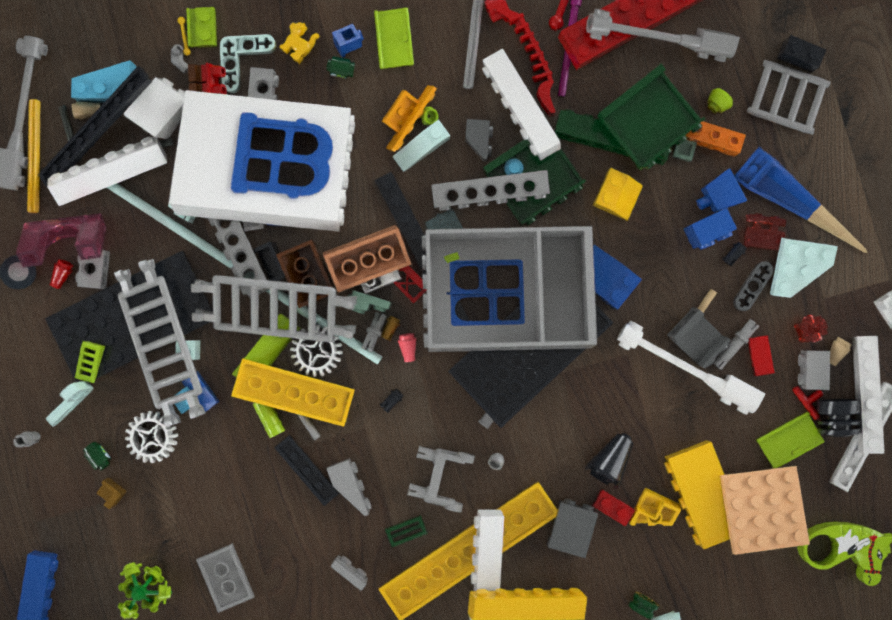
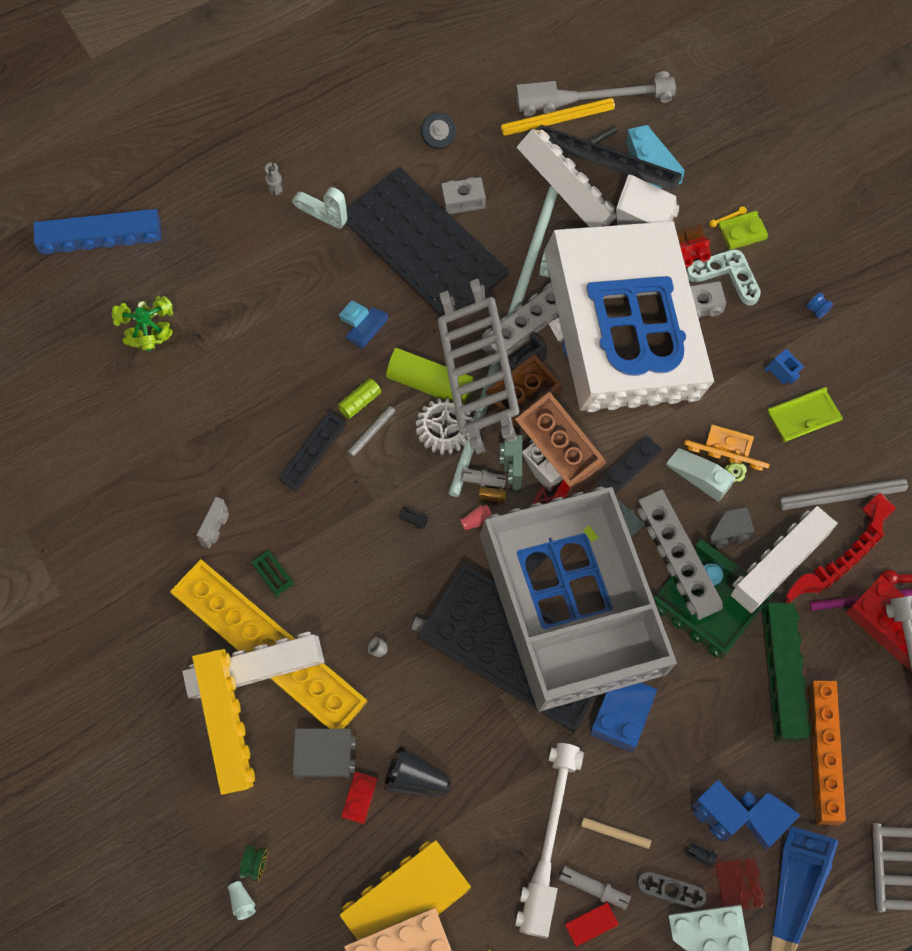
camera: 75 degrees right, 20 degrees down
(39, 235) = (497, 175): clear pink arch -> none
(61, 272) = (450, 168): red cone -> none
(84, 110) = (619, 144): tan cone -> none
(86, 345) = (378, 206): lime slope -> none
(97, 456) = (272, 248): dark green brick -> none
(111, 493) = (238, 271): pearl gold panel -> none
(128, 290) = (361, 311): light grey bar -> none
(141, 450) = (310, 302): white gear -> none
(177, 58) = (704, 215): light grey arm -> none
(194, 348) = (407, 302): light aqua brick -> none
(225, 578) = (175, 403): light grey tile -> none
(292, 392) = (393, 413): yellow plate -> none
(299, 45) = (761, 319): yellow animal -> none
(340, 67) = (753, 370): dark green brick -> none
(346, 482) = (310, 495): light grey slope -> none
(430, 493) = (335, 587): light grey connector -> none
(618, 194) = (723, 698): yellow slope -> none
(650, 118) = (823, 699): dark green panel -> none
(655, 509) = (370, 847): yellow slope -> none
(685, 150) = (802, 760): sand green plate -> none
(698, 338) = (588, 839): dark grey panel -> none
(719, 101) = (872, 783): lime cone -> none

